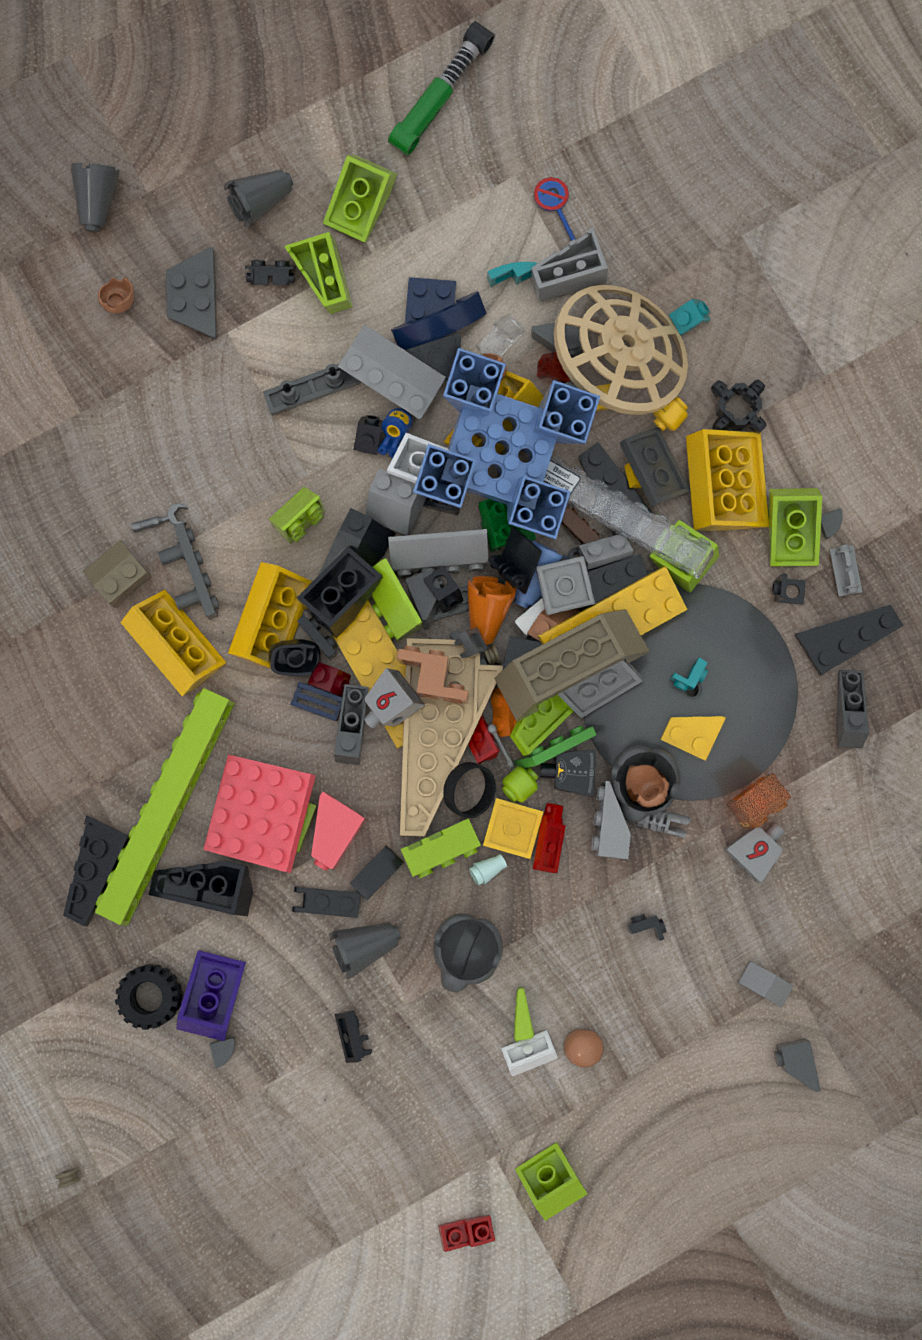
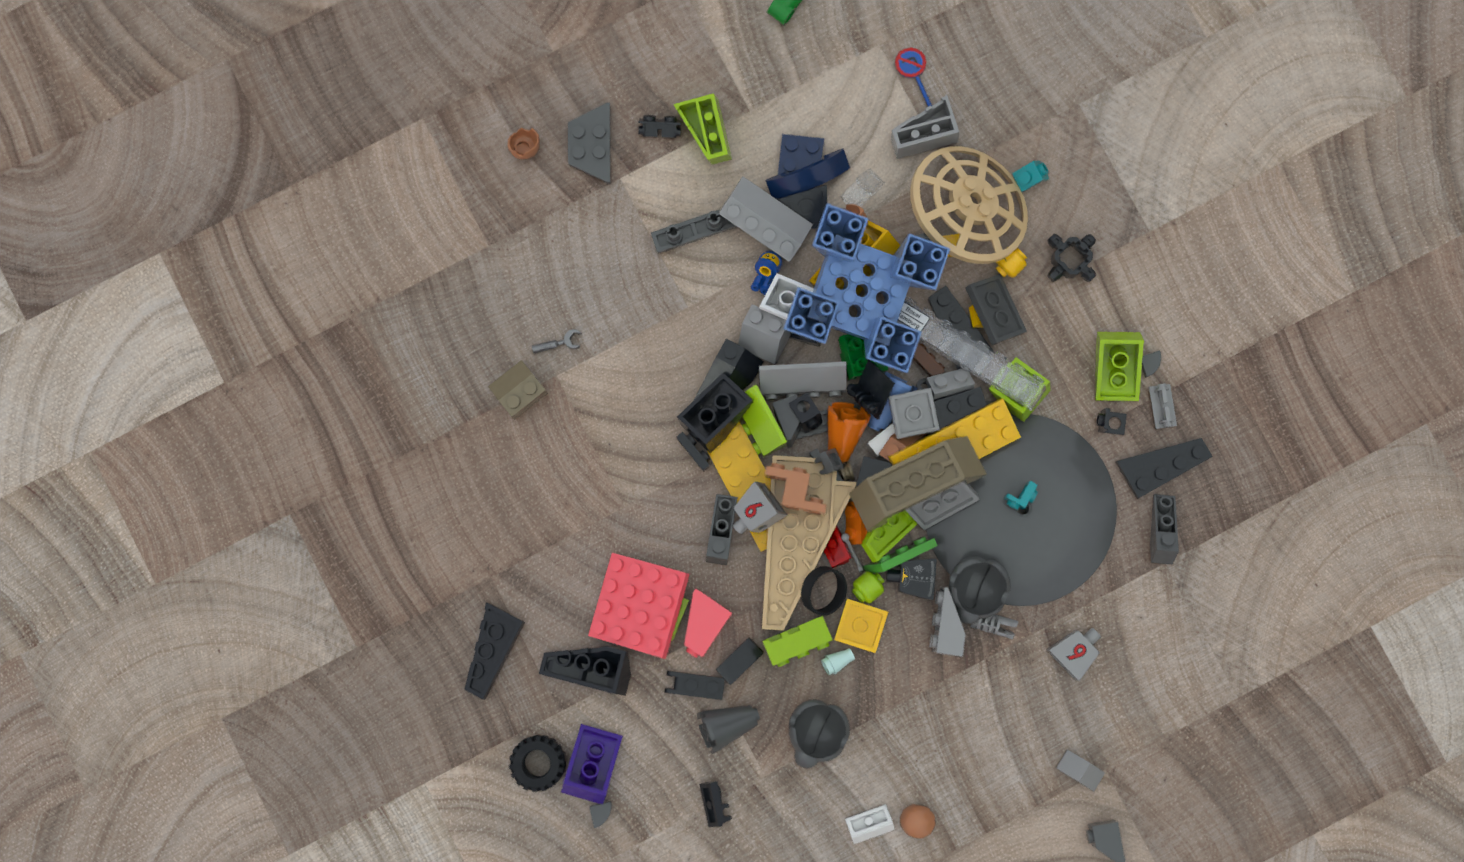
camera: 10 degrees right, 0 degrees up
(93, 193) = (506, 52): dark grey cone -> none
(164, 807) = (555, 597): lime brick -> none
(172, 642) = (566, 452): yellow slope -> none
(194, 559) = (591, 409): dark grey plate -> none
(257, 194) = (650, 57): dark grey cone -> none
(268, 613) = (651, 432): yellow slope -> none
(294, 657) = (672, 469): black piece -> none
(298, 515) = (679, 342): lime slope -> none
(298, 694) = (708, 514): dark blue tile -> none
(329, 679) = (702, 488): dark red bracket -> none
(359, 197) = (740, 61): lime slope -> none
(368, 434) = (743, 273): black bracket -> none
(519, 271) = (880, 132): teal slope -> none
(522, 1025) = (865, 798): lime slope -> none
(545, 336) = (902, 190): dark grey slope -> none
(550, 367) = (905, 218): clear red bracket -> none
(550, 839) = (893, 636): red hinge -> none
(641, 923) = (971, 713): black bracket -> none
(646, 785) = (980, 592): nougat hair -> none
(693, 733) = (1023, 547): yellow wing -> none
(727, 480) = (1059, 323): yellow slope -> none
(759, 800) = (1079, 608): clear orange brick -> none

